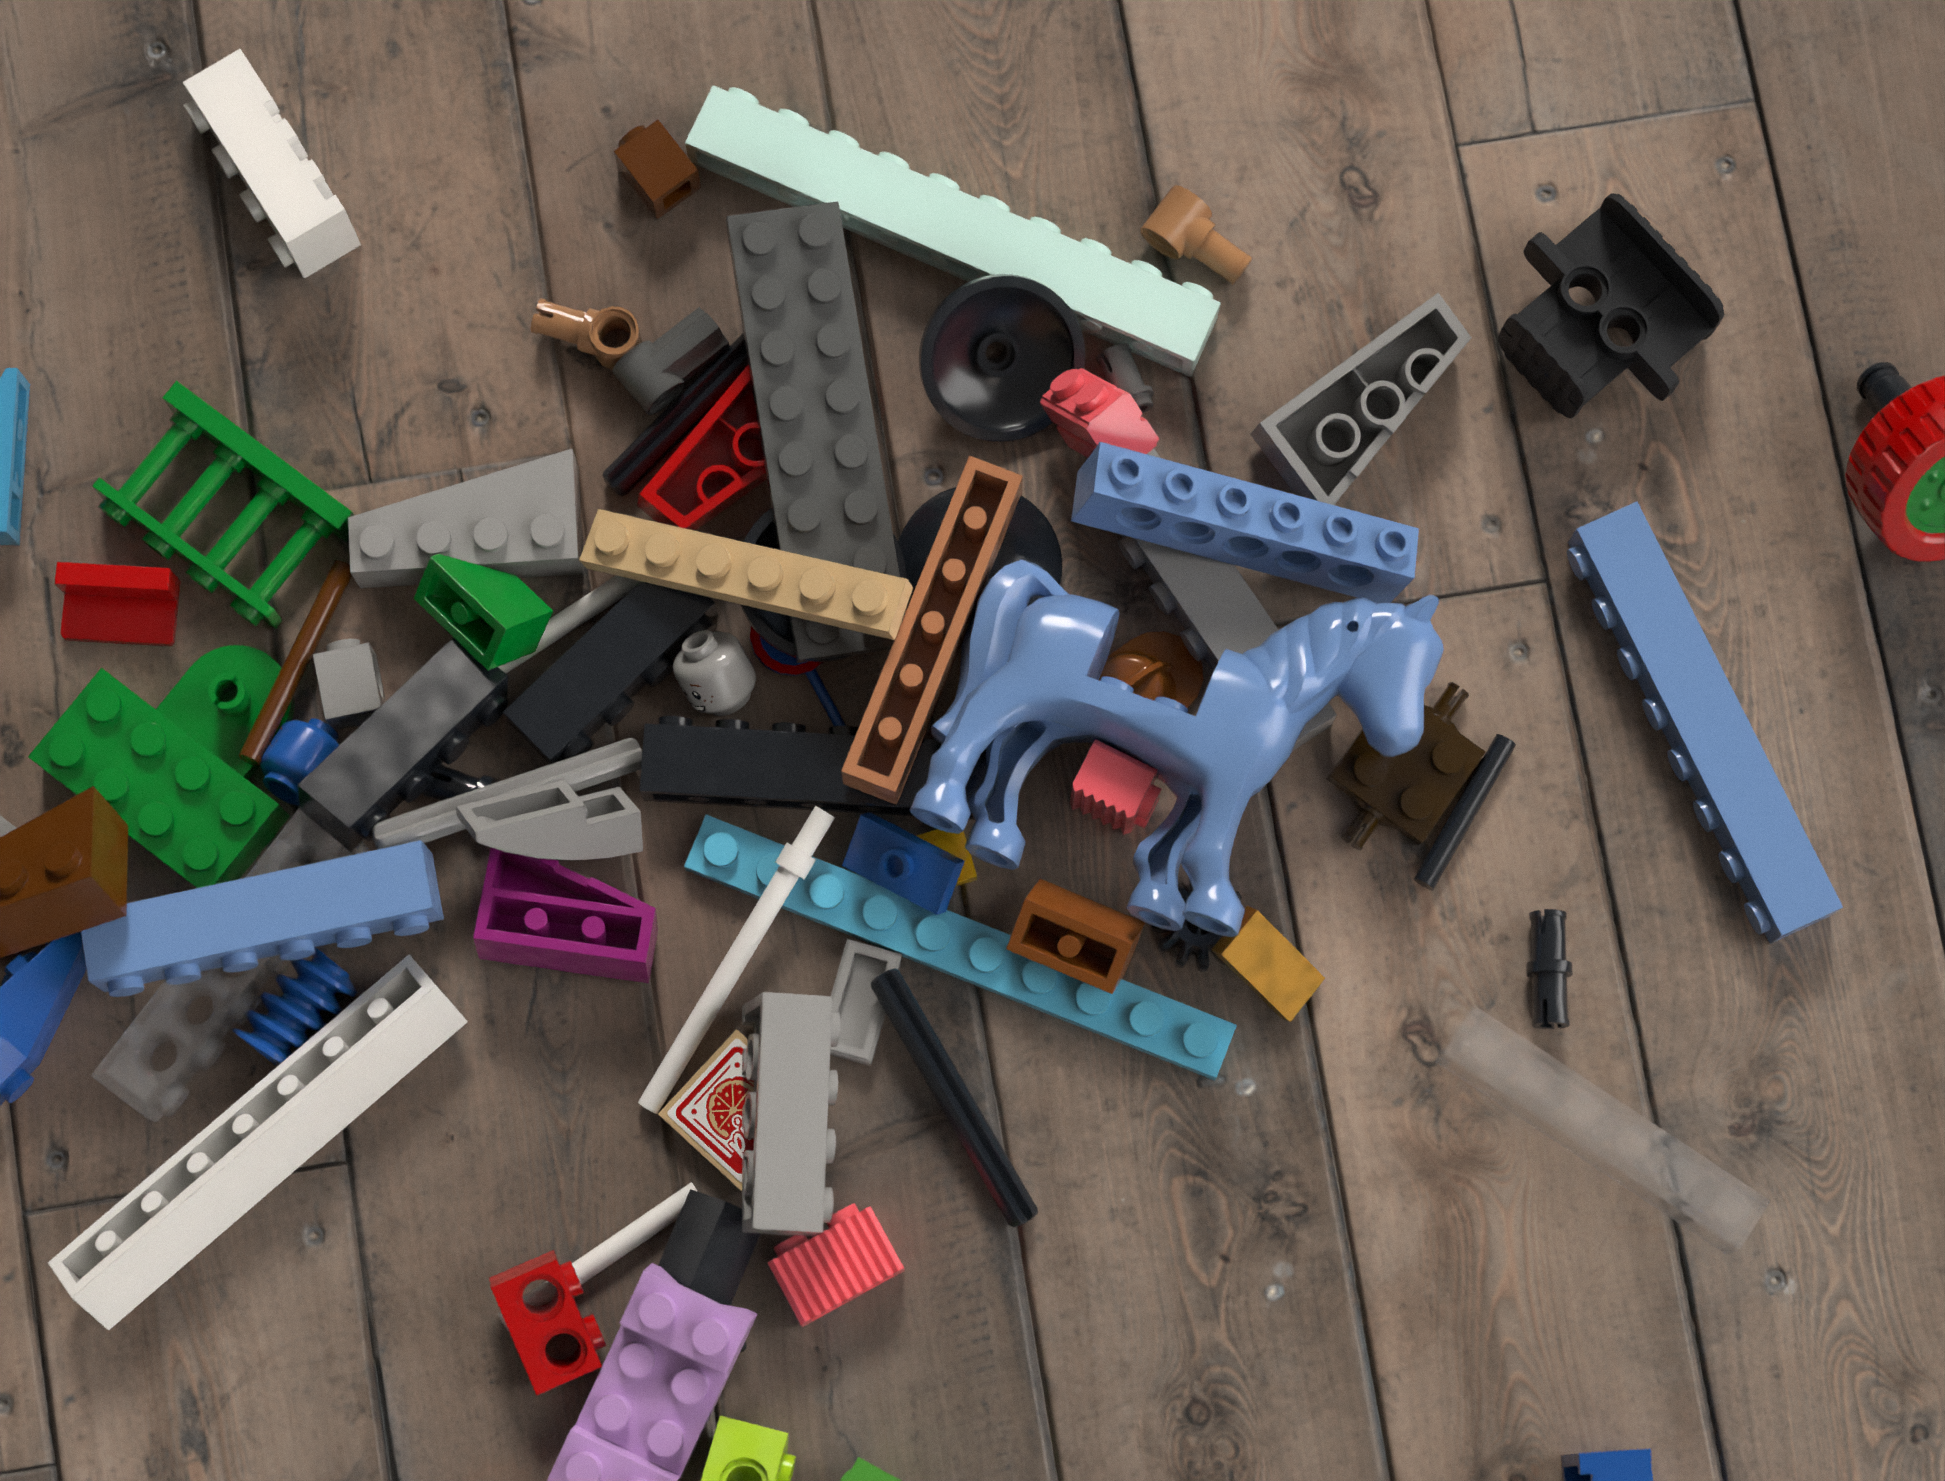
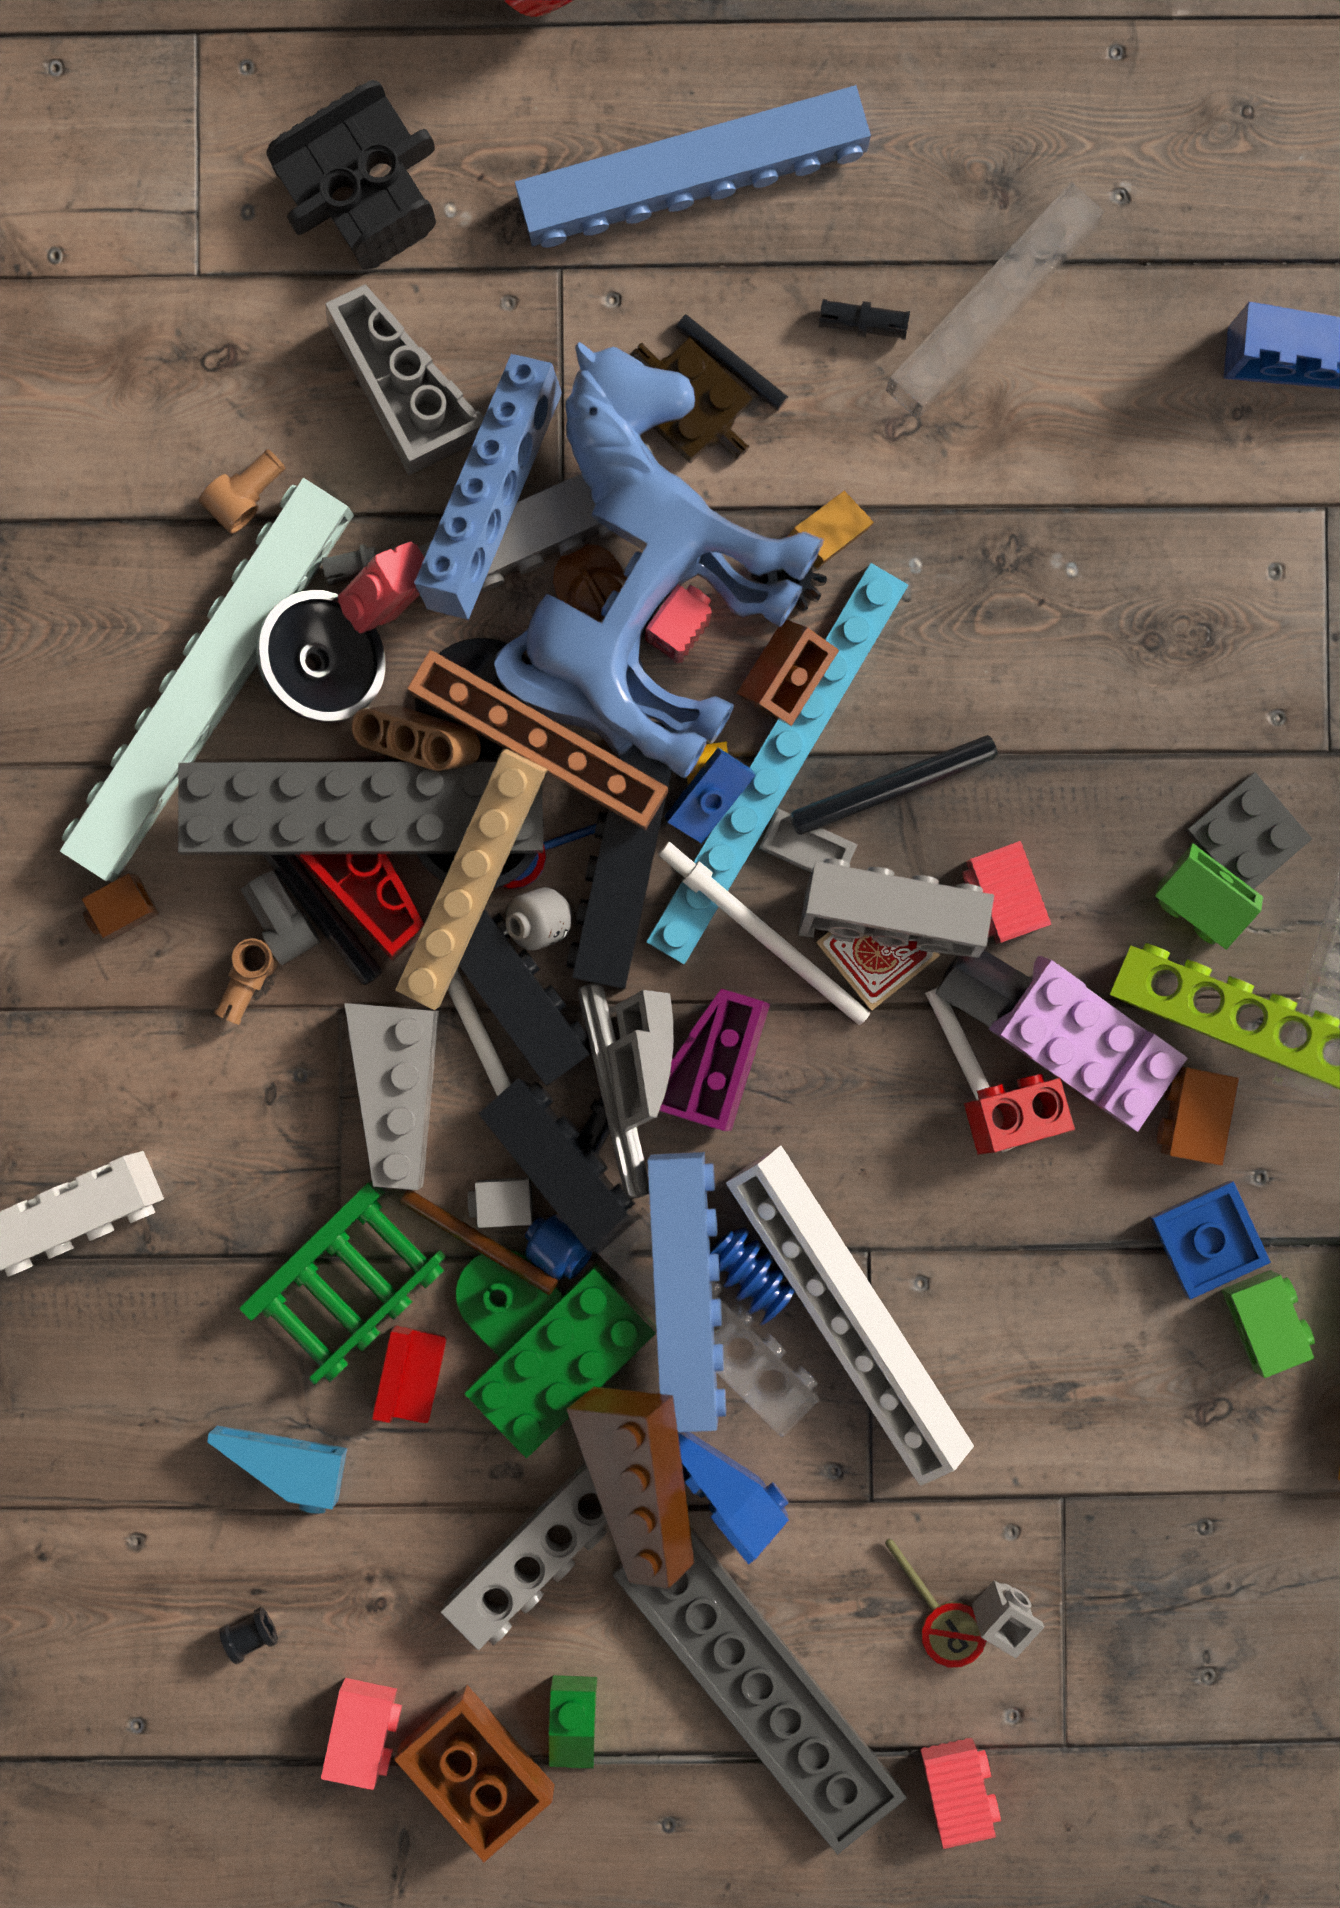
camera: 80 degrees left, 10 degrees up
(483, 609) = (462, 1090): green slope -> none
(917, 484) = (415, 737): none -> medium nougat beam

